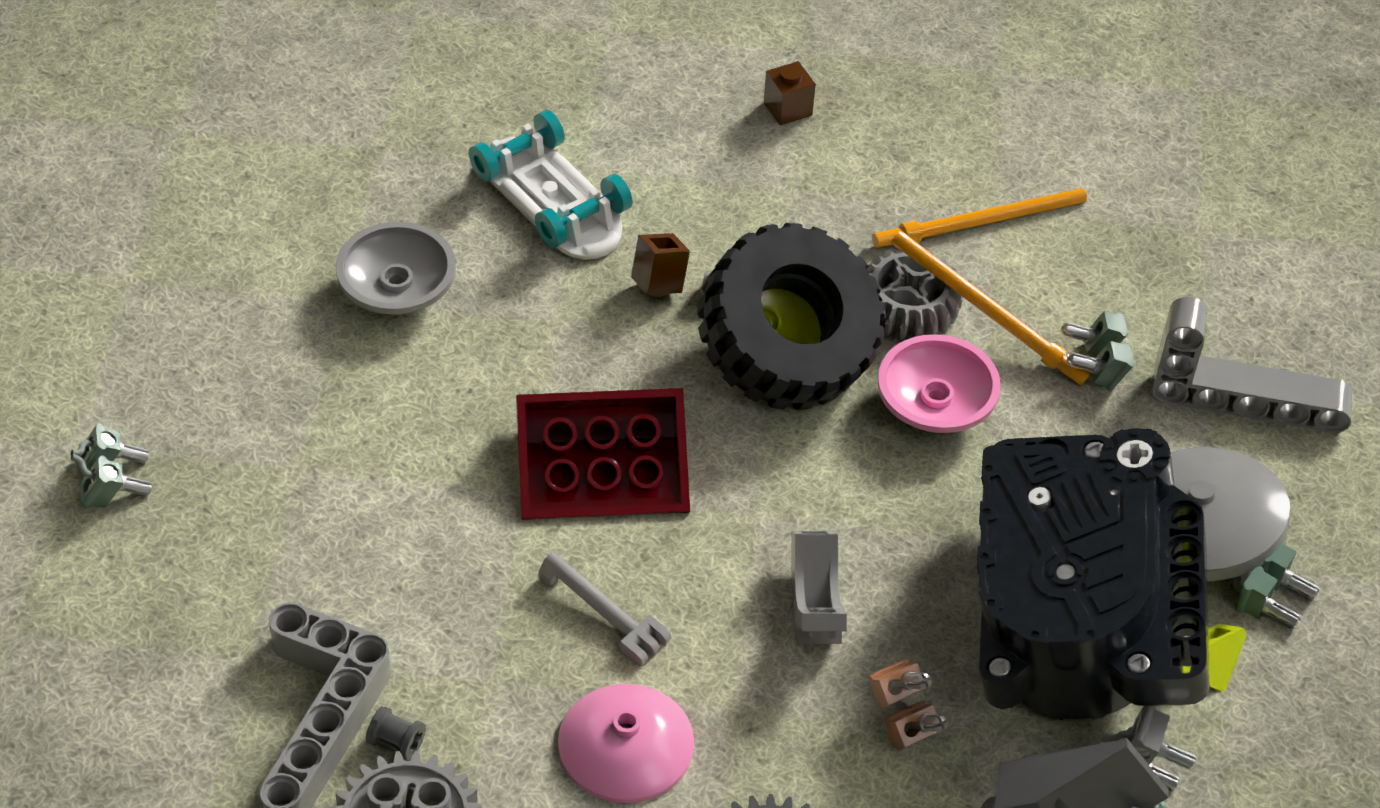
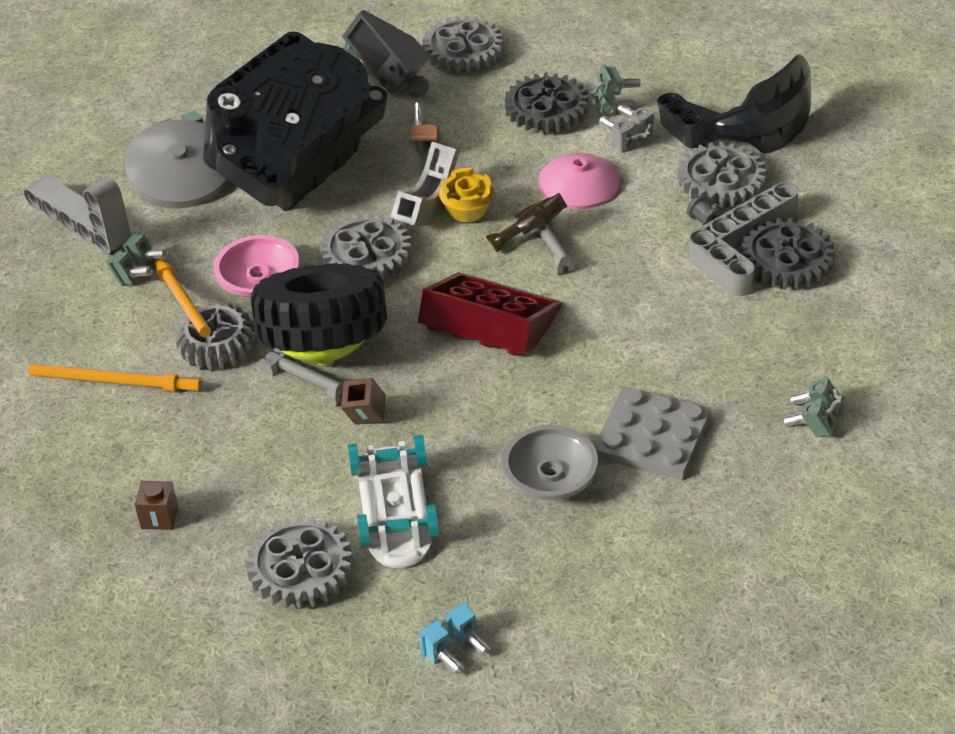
camera: 145 degrees left, 5 degrees down
(238, 704) = (788, 252): none -> dark grey gear
(305, 379) = (652, 432): none -> light grey plate
(397, 87) = (461, 627): none -> medium azure piece
(600, 99) = (299, 562): none -> light grey gear
(635, 605) = (529, 219): none -> dark brown animal
(754, 600) = (466, 194): none -> yellow cone
(833, 483) = (382, 239): none -> light grey gear

